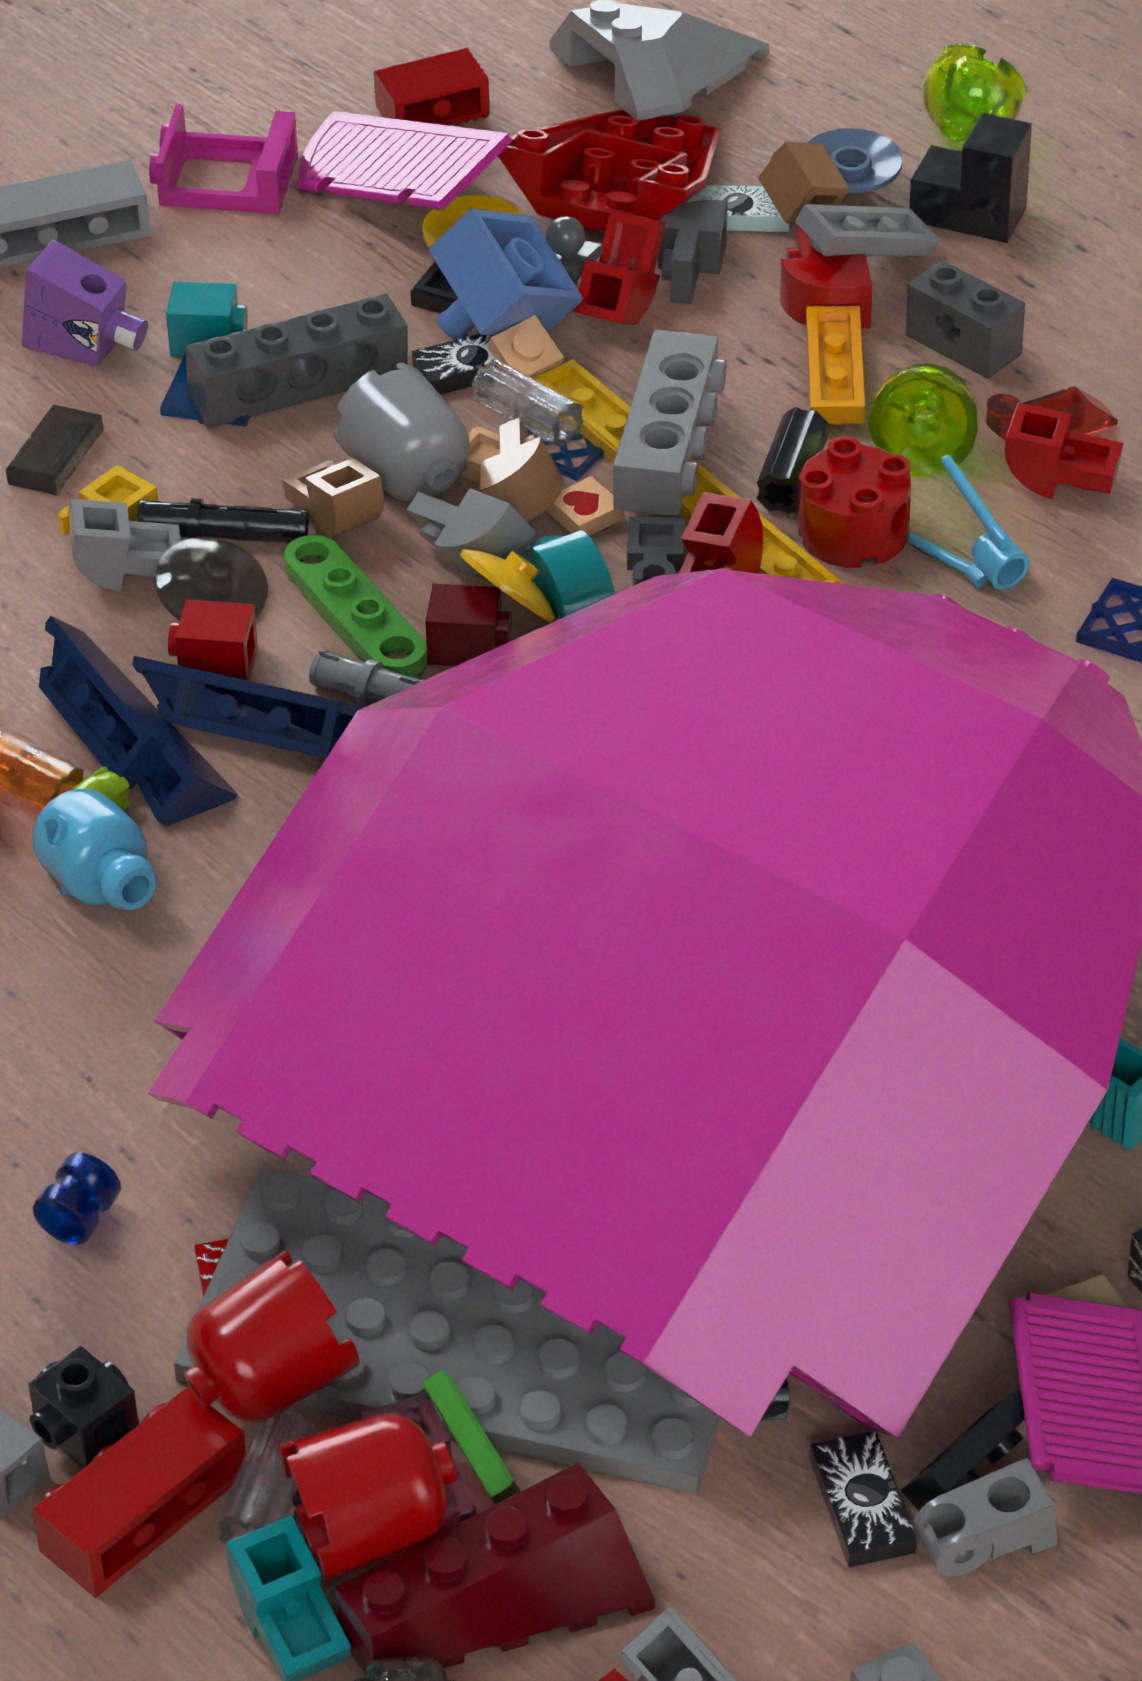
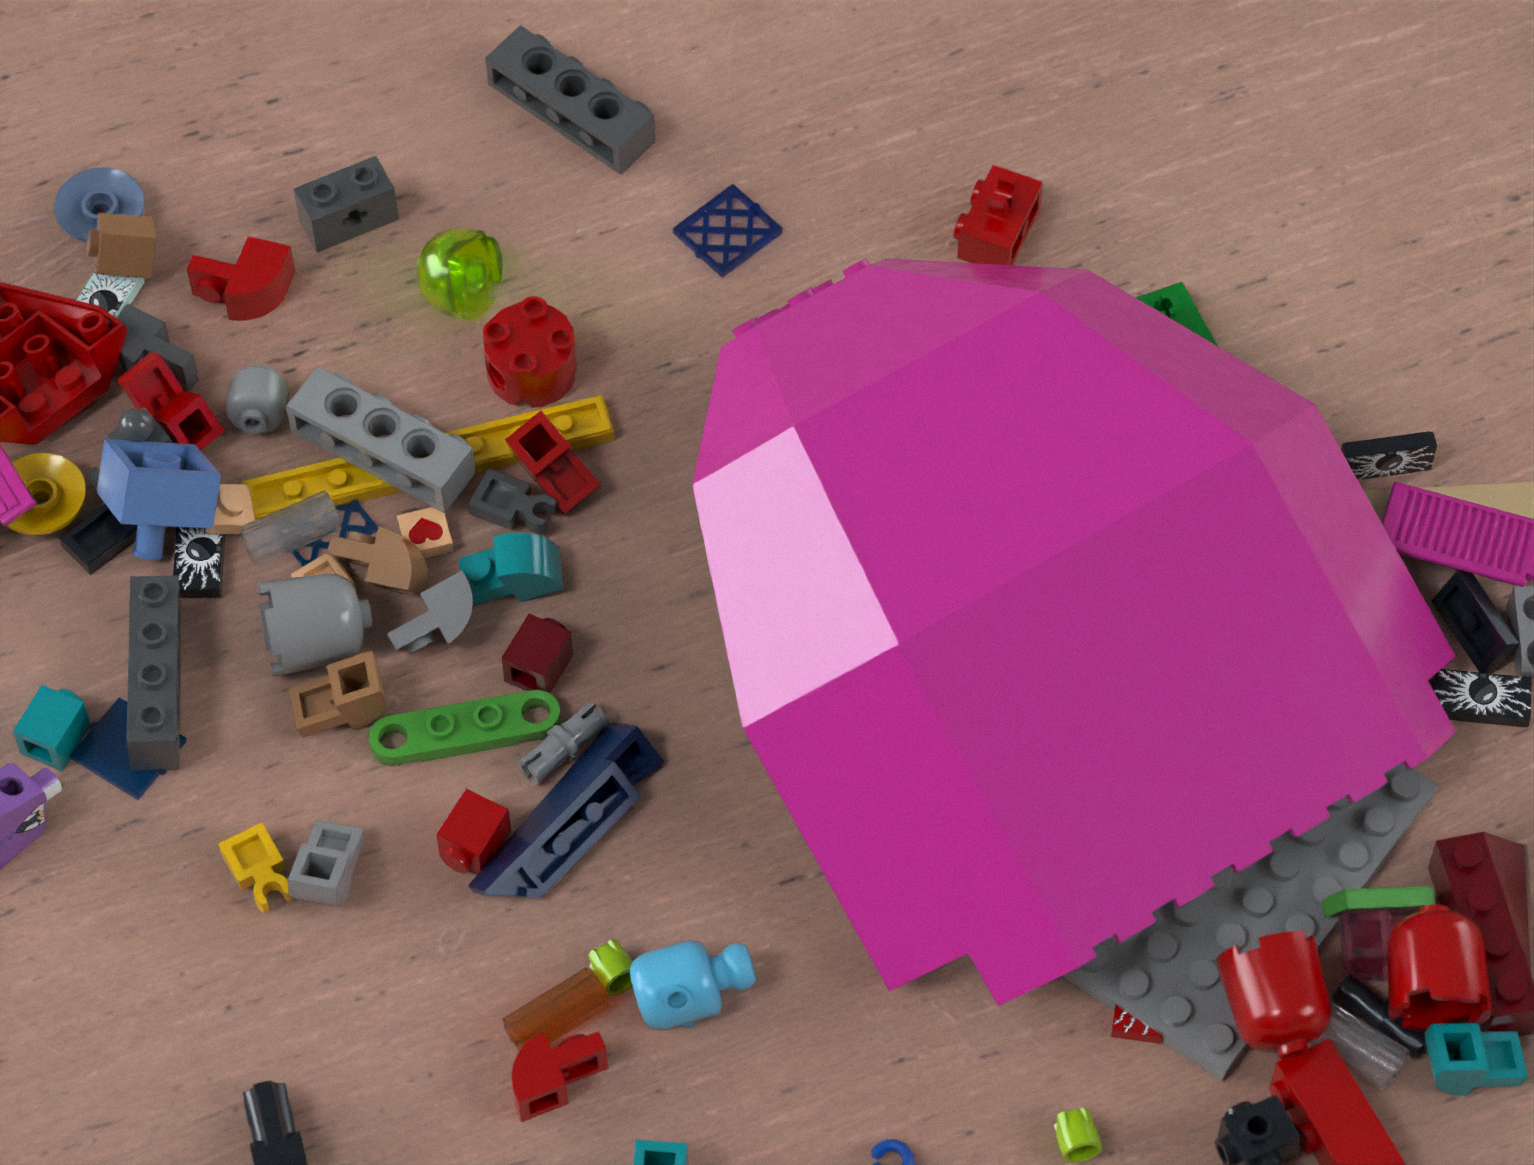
camera: 70 degrees left, 15 degrees up
(35, 1247) = (1077, 1135): none -> lime hose
(54, 449) = (151, 889): clear smoke tile -> none
(73, 1203) = (1041, 1090): clear blue wheel -> none
(127, 729) = (534, 928): dark blue wedge -> none
(188, 569) = (391, 832): clear smoke dish -> none
(227, 522) = (313, 800): black pin -> none
(513, 577) = (517, 604): yellow dish -> none
(673, 315) = (257, 399): none -> light grey head
(795, 442) = (447, 376): black axle -> none
(835, 363) = (346, 308): light orange plate -> none
(866, 230) = (216, 225): light grey plate -> none
(965, 85) = (73, 95): clear neon green cylinder -> none
(978, 188) = (191, 136): black brick -> none
(994, 553) = (624, 287): medium azure plant -> none
(1046, 453) = (539, 204): red brick -> none
(1087, 412) = (483, 195): clear red piece -> none

